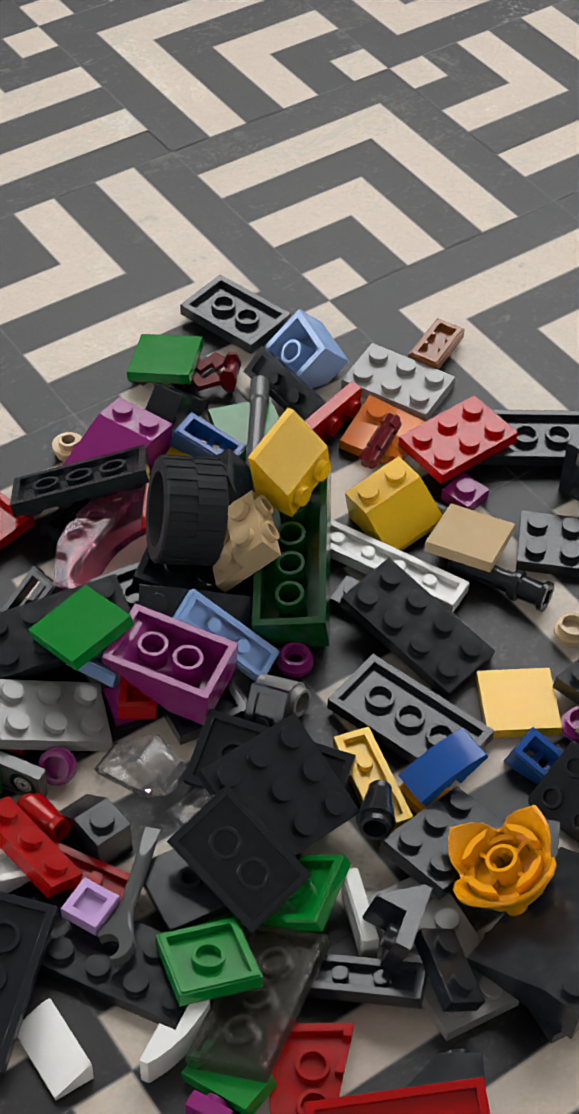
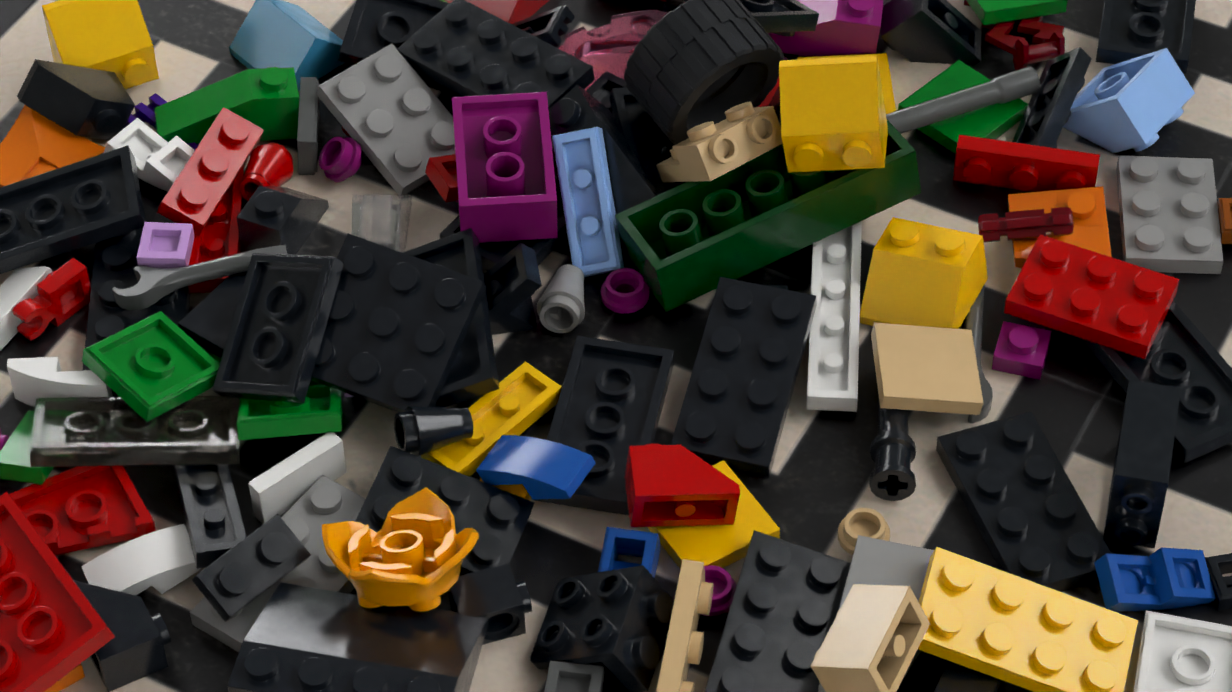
camera: 65 degrees right, 0 degrees up
(72, 1003) = (59, 298): none -> red plate
(81, 627) = (482, 65): green tile -> none
(194, 429) = (900, 48): blue slope -> none
(386, 1048) = (153, 560): none -> white slope
(399, 916) = (292, 495): black slope -> none
(503, 699) = (676, 488): none -> red slope

